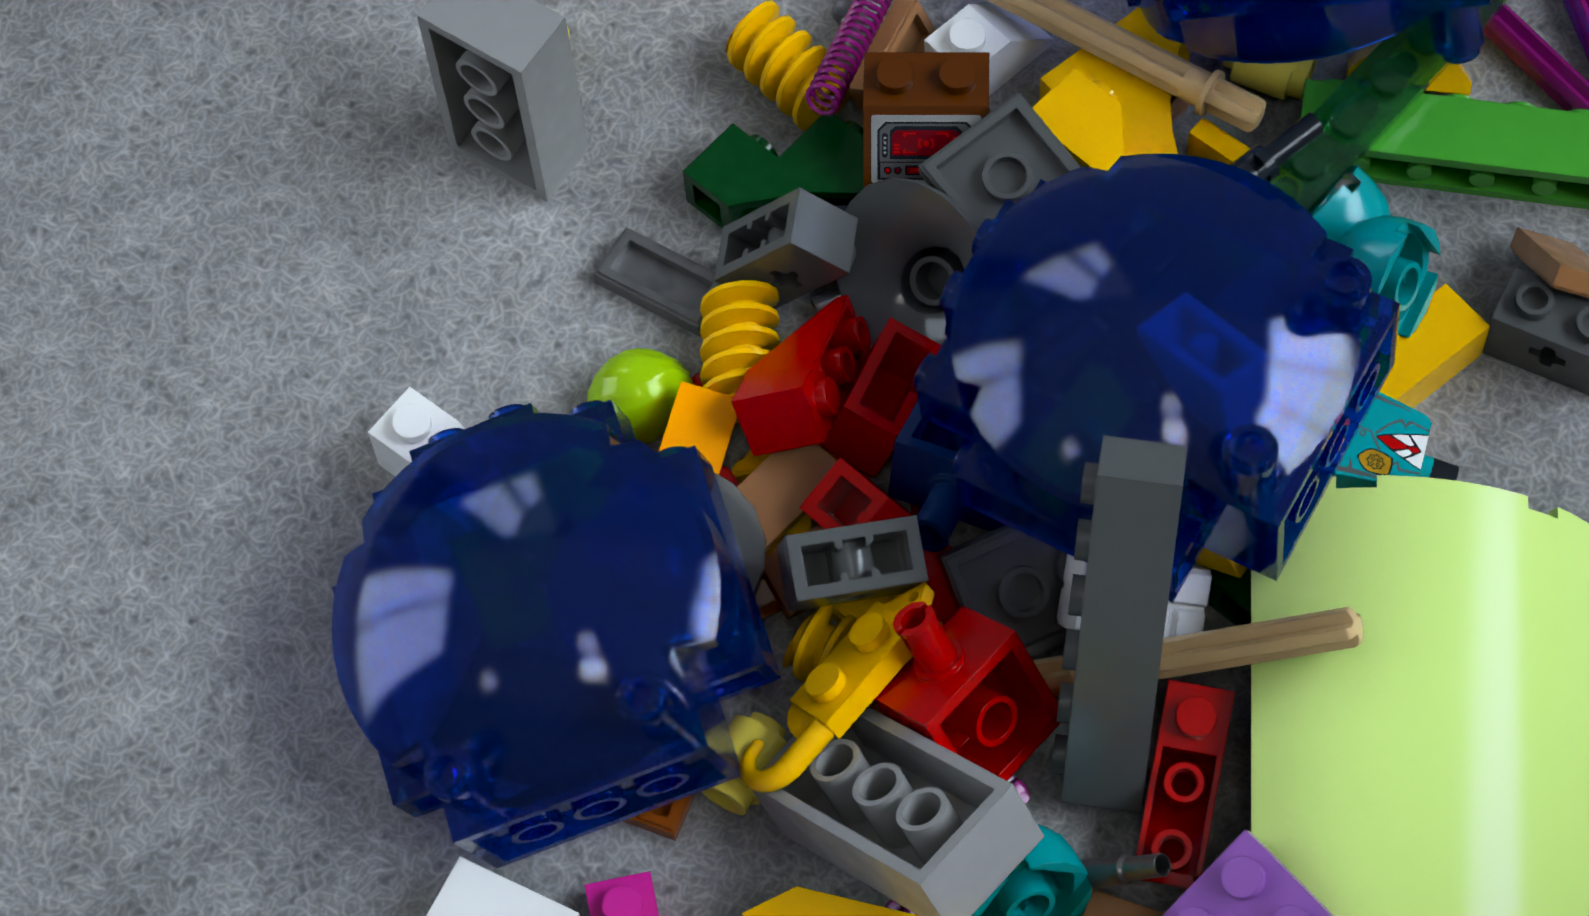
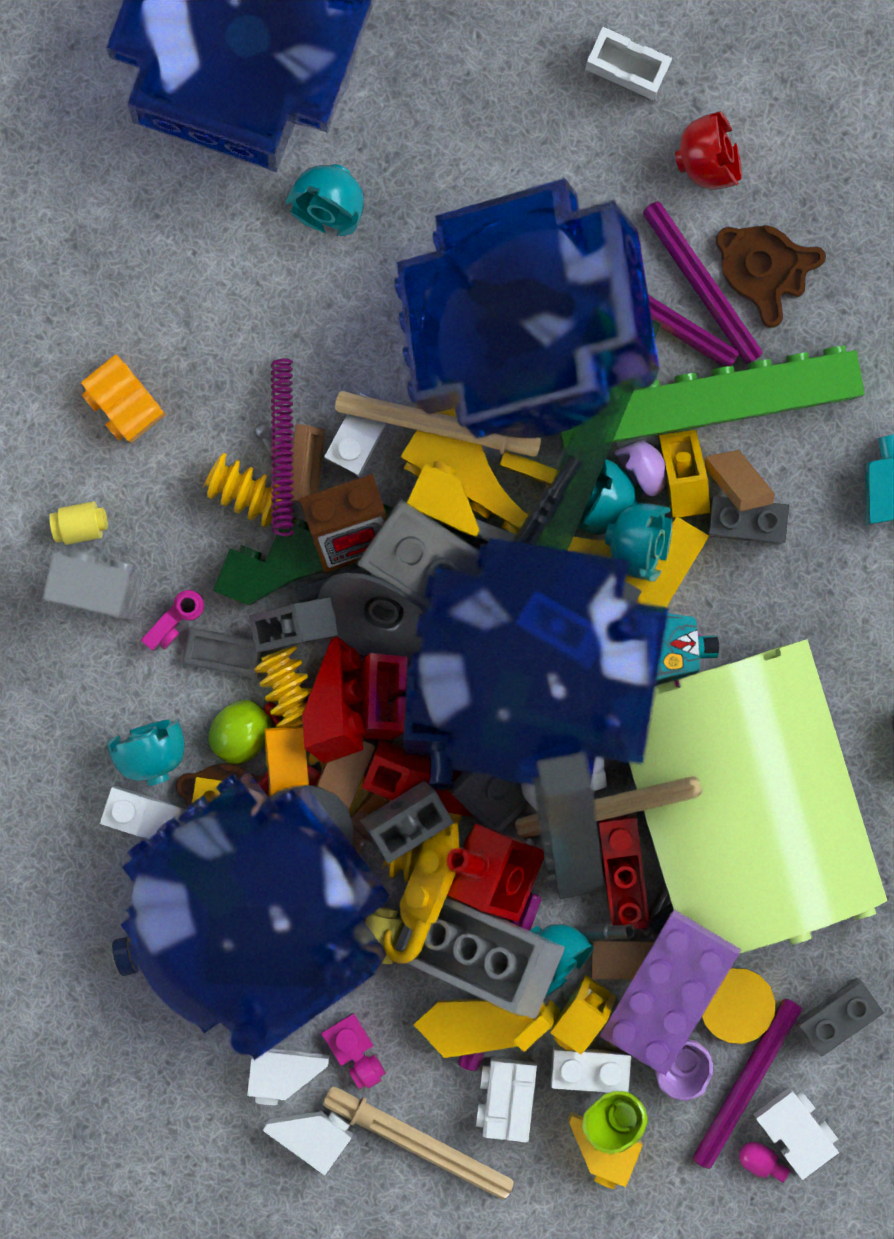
camera: 30 degrees left, 25 degrees up
(317, 660) = (124, 956): none -> dark blue tile
(487, 362) = (149, 751): none -> teal cylinder
(590, 211) = (164, 631): none -> dark pink plate
(1415, 195) = (644, 466): none -> lavender hair
(1476, 246) = (685, 473): none -> yellow slope

